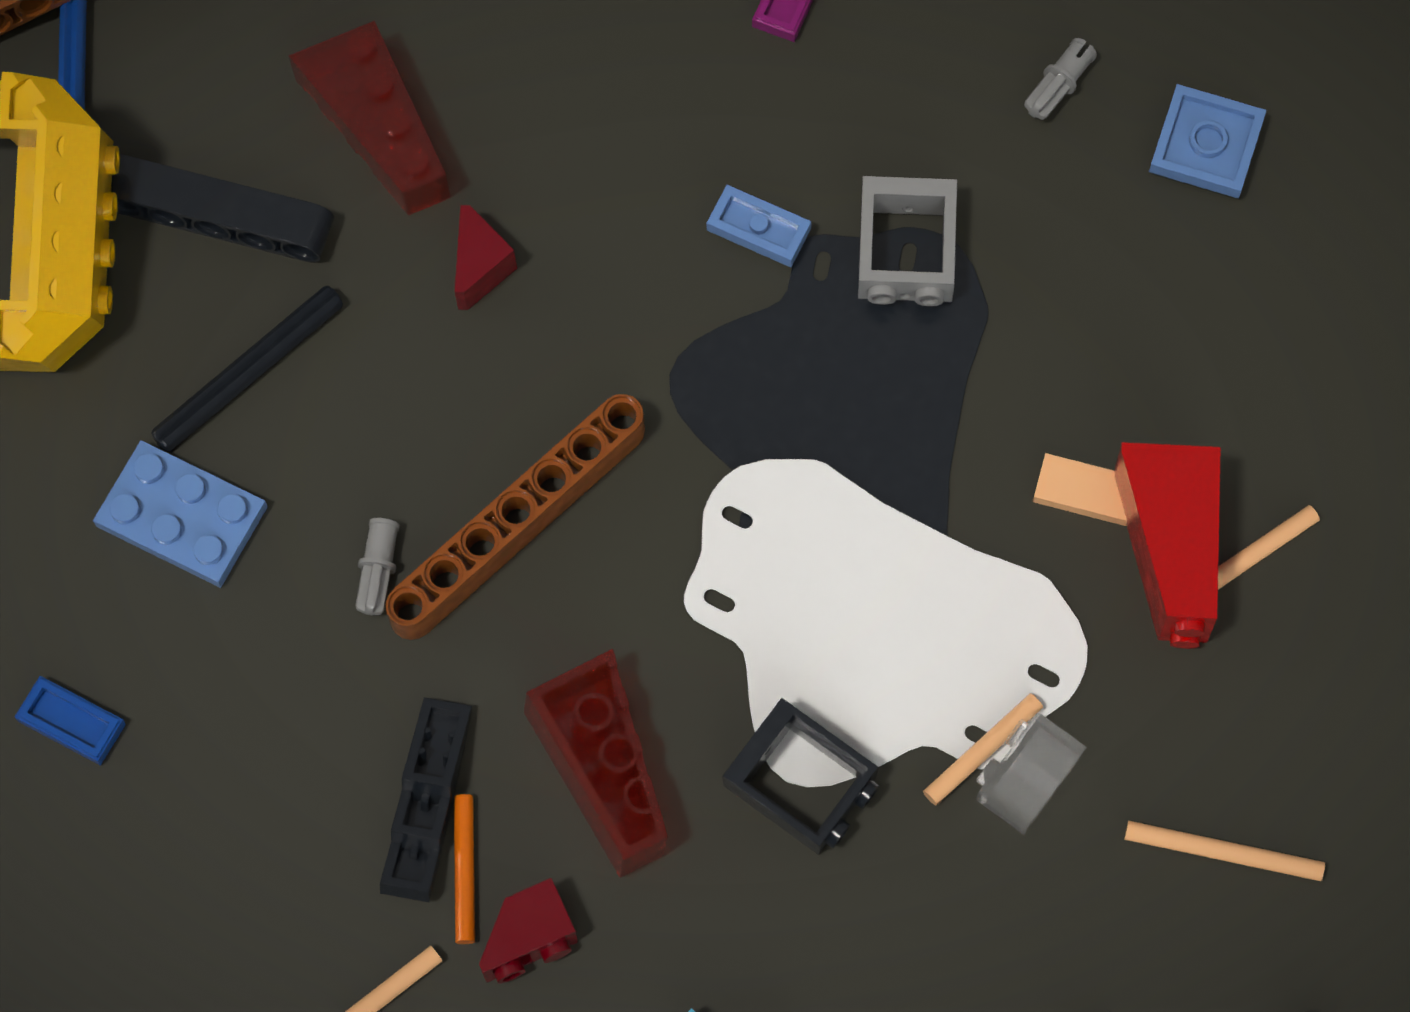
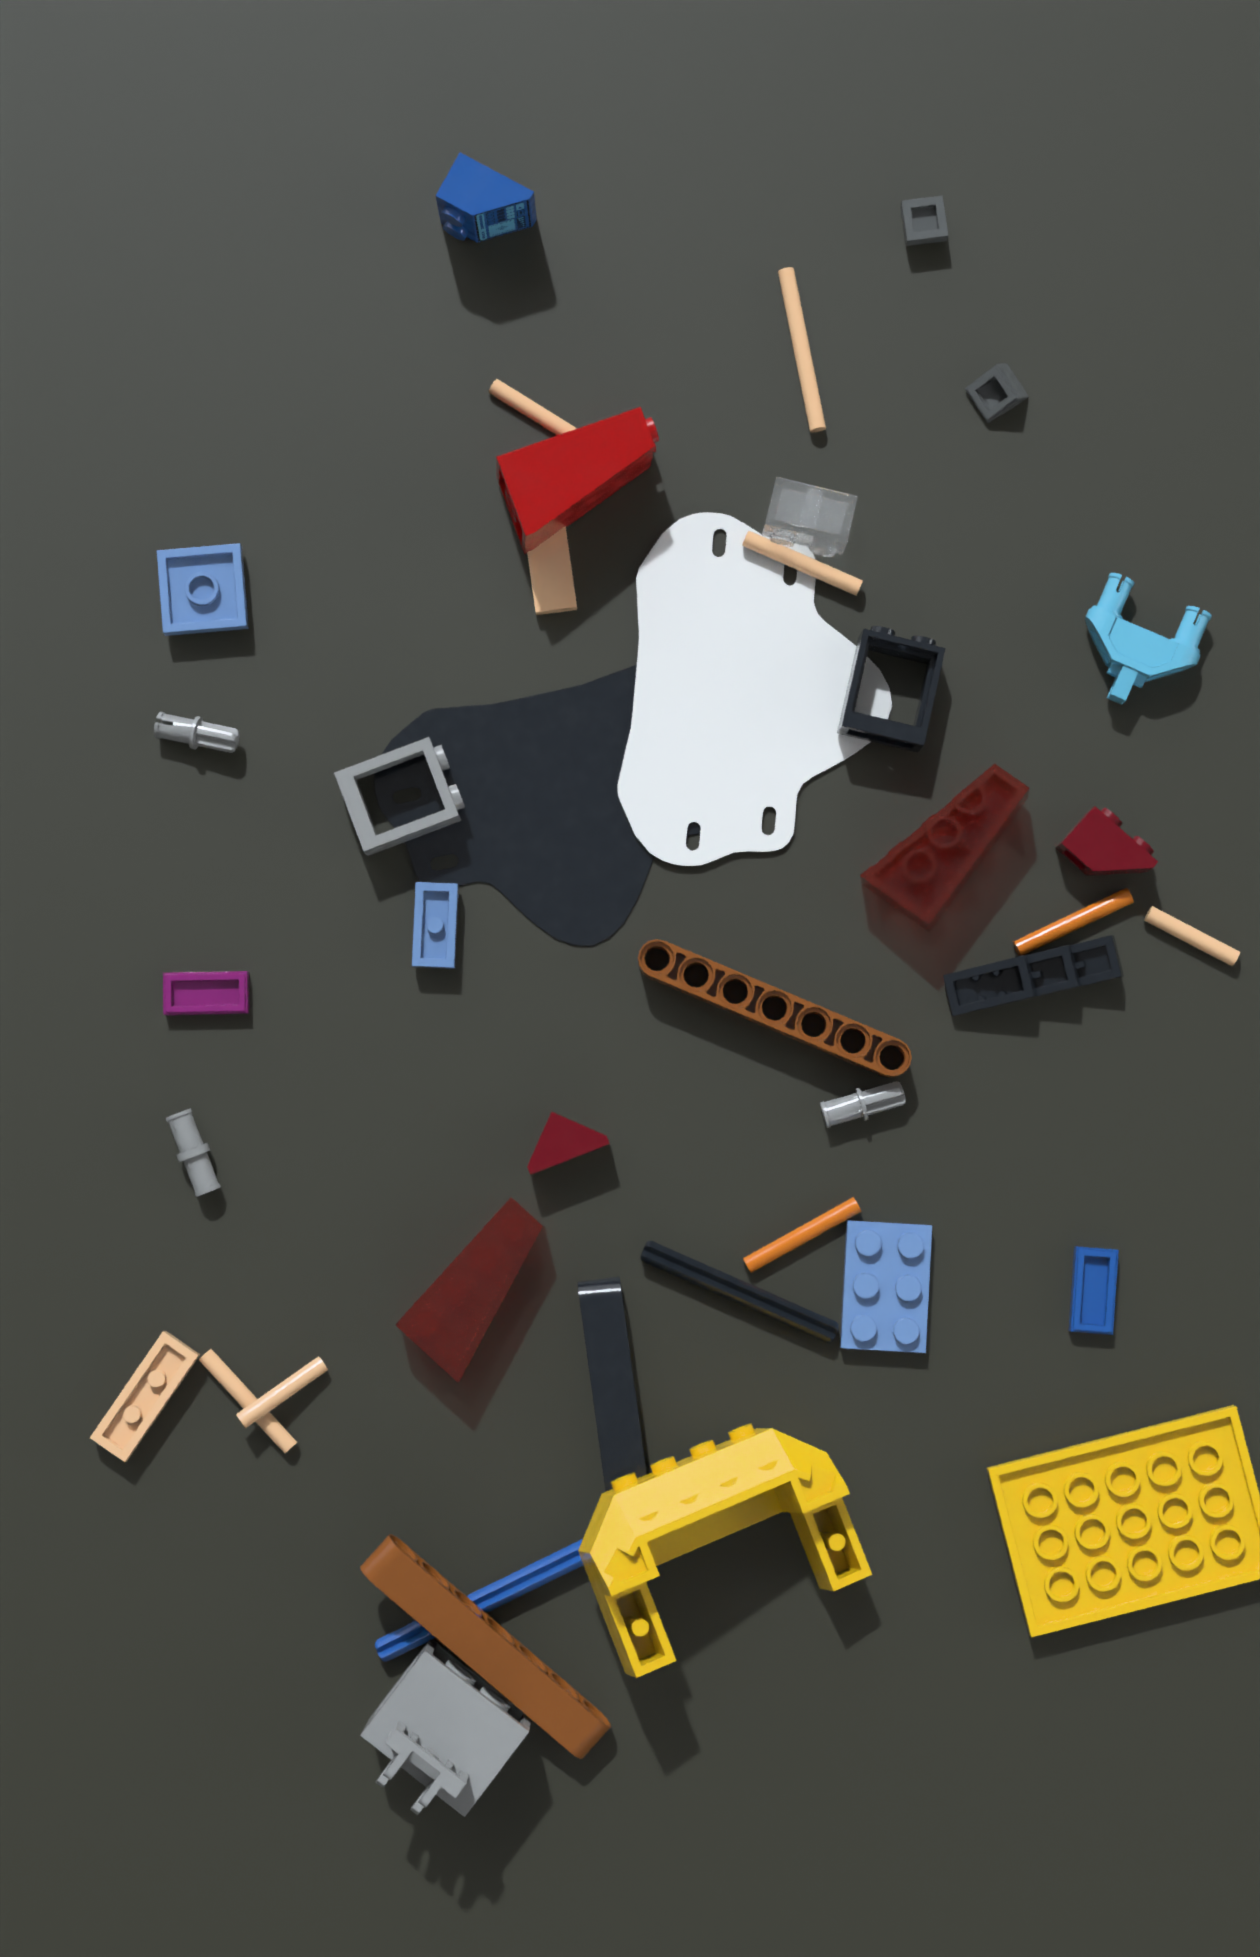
camera: 115 degrees left, 15 degrees up
(273, 454) = (802, 1234): none -> orange bar

